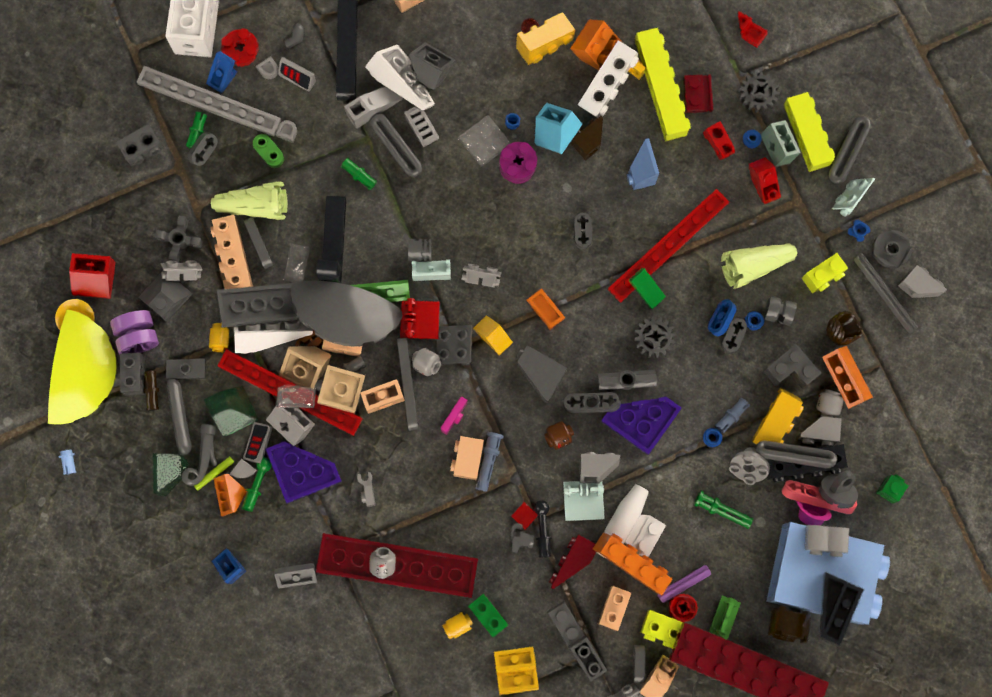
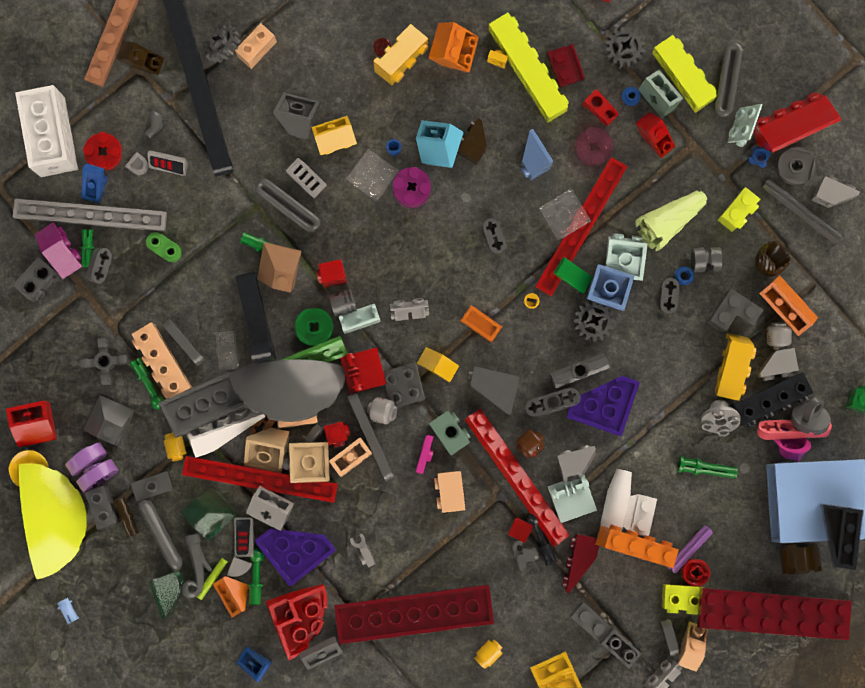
camera: 15 degrees left, 5 degrees up
(167, 119) = (57, 250): none -> brick
(172, 269) = (108, 394): light grey hinge -> none
(210, 261) = (142, 373): none -> green pin
(257, 201) = (167, 303): yellowish green cone -> none
(284, 535) = (298, 617): none -> red brick
(287, 131) = (176, 222): light grey tile -> none
(295, 397) = (267, 483): clear slope -> none
(370, 104) = (251, 171): light grey slope -> none
(370, 199) = (279, 266): none -> medium nougat slope
(376, 371) = (337, 434): none -> red brick
(382, 562) = (400, 617): light grey head -> none
(386, 254) = (303, 327): none -> green plate
(393, 70) = (263, 132): white wedge -> none
(417, 219) = (331, 273): none -> red brick
(459, 93) = (334, 135): none -> yellow brick
(482, 390) = (439, 427): none -> sand green brick
(488, 615) = (514, 635): green brick -> none
(490, 452) = (469, 478): sand blue pin -> none
(536, 464) = (517, 477): none -> red plate
(598, 304) = (530, 304): none -> yellow hinge
(614, 608) = (631, 593): light nougat brick -> none
(619, 52) = (478, 49): white brick -> none
(656, 229) = (564, 214): none -> clear plate
(679, 309) = (610, 287): none -> medium blue slope
(702, 286) = (627, 255): none -> light aqua plate
(703, 185) = (592, 136): none -> clear pink plate
(716, 433) = (682, 399): blue plate -> none
(722, 317) = (652, 283): blue plate -> none
(724, 617) = (737, 569): bright green hinge -> none
(732, 415) = (689, 374): sand blue pin -> none
(796, 454) = (762, 396): dark grey piece -> none
(826, 539) = (814, 471): light grey brick -> none
(902, 205) = (795, 122): none -> red slope

